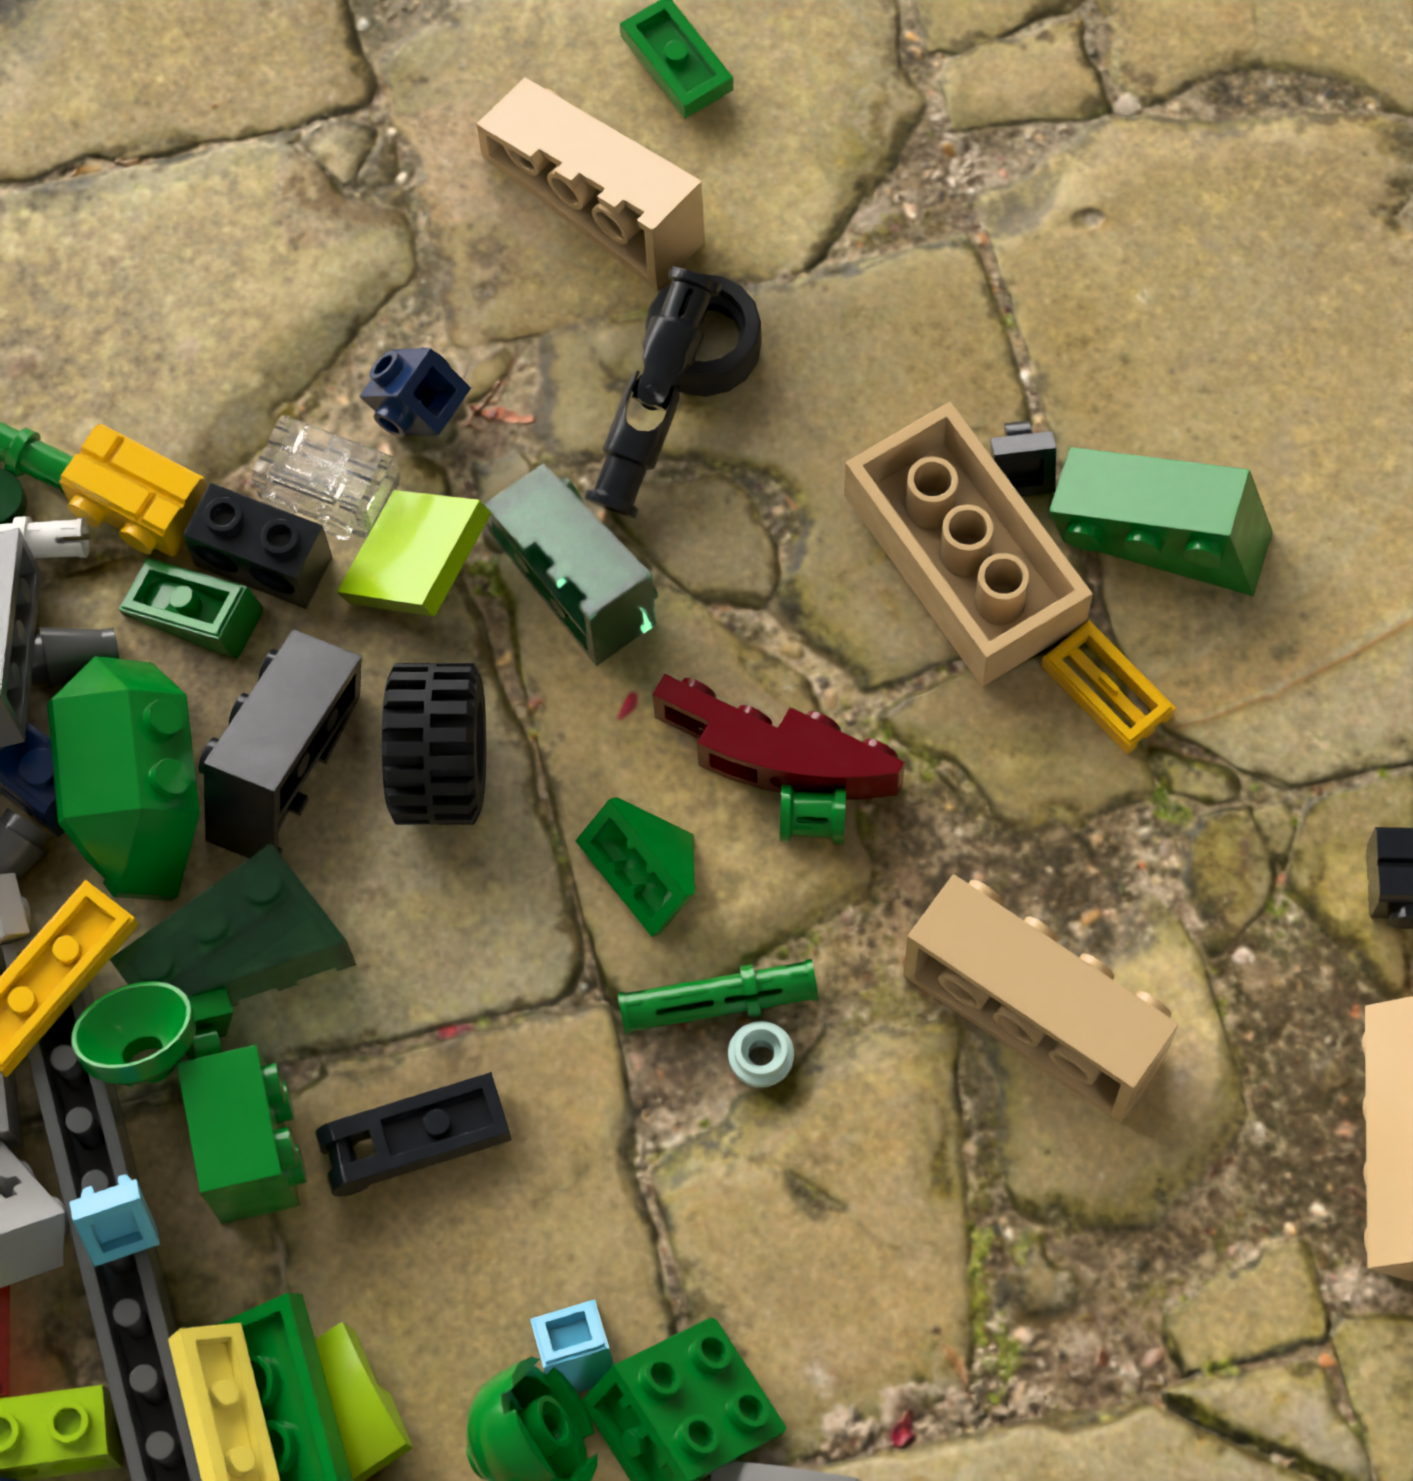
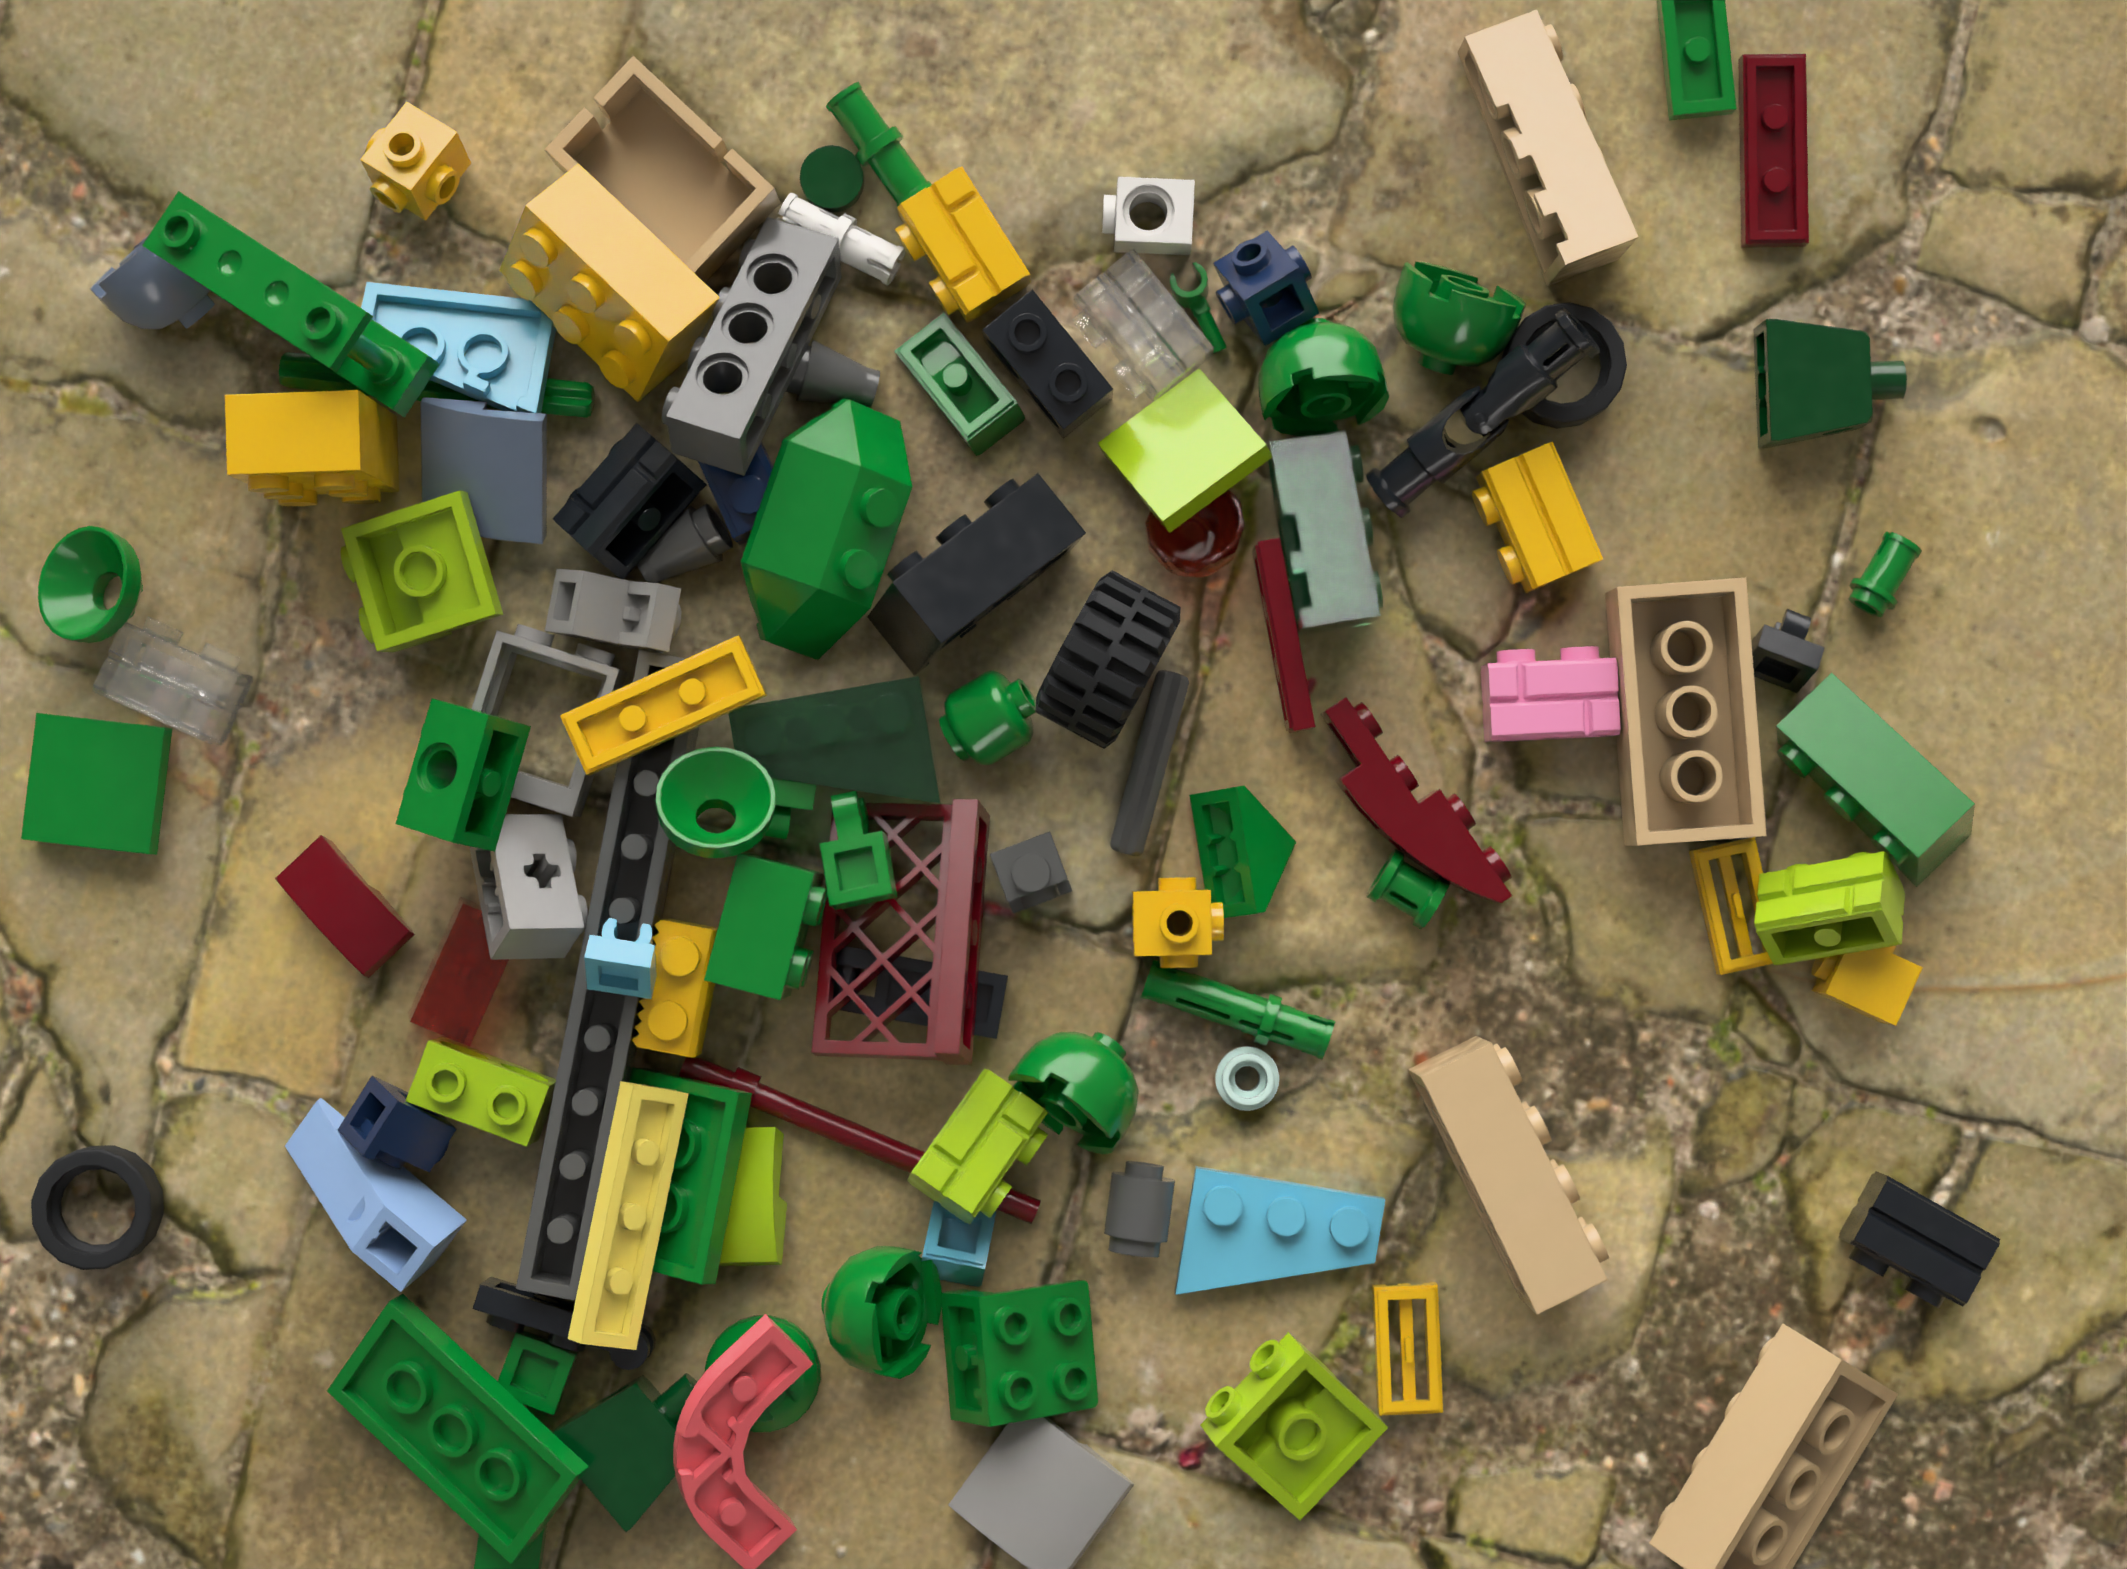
camera: 25 degrees right, 20 degrees up
(192, 1246) = (681, 997): none -> yellow brick
(287, 366) = (1175, 200): none -> white brick
(297, 1032) = (859, 862): none -> green plate
(357, 859) = (988, 718): none -> green head
(362, 435) = (1199, 306): none -> green hand
(426, 1063) = (954, 947): none -> dark red fence
(456, 1294) = (833, 1126): none -> dark red bar
(463, 970) = (1031, 872): none -> dark grey brick
(467, 618) = (1200, 543): none -> clear red hair
(501, 436) = (1321, 377): none -> green cylinder
(524, 830) = (1149, 763): none -> dark grey axle
(543, 1236) = (978, 1147): none -> lime brick
(584, 662) = (1283, 635): none -> dark red tile
(587, 337) = (1453, 317): none -> green cylinder
(607, 1137) = (1080, 1086): none -> green cylinder
(618, 944) = (1150, 917): none -> yellow brick
(725, 1219) = (1139, 1209): none -> dark grey brick
(750, 460) = (1536, 518): none -> yellow brick
(784, 100) = (1773, 150): none -> dark red tile
(844, 594) = (1550, 697): none -> bright pink brick
(857, 1177) = (1271, 1229): none -> medium azure wing
(921, 243) = (1817, 381): none -> dark green torso
(976, 1340) = (1291, 1424): none -> lime plate
(1069, 372) = (1884, 575): none -> green pin
(1074, 1268) = (1404, 1294): none -> yellow tile
(1185, 630) = (1830, 908): none -> lime brick
(1253, 681) = (1868, 982): none -> yellow brick

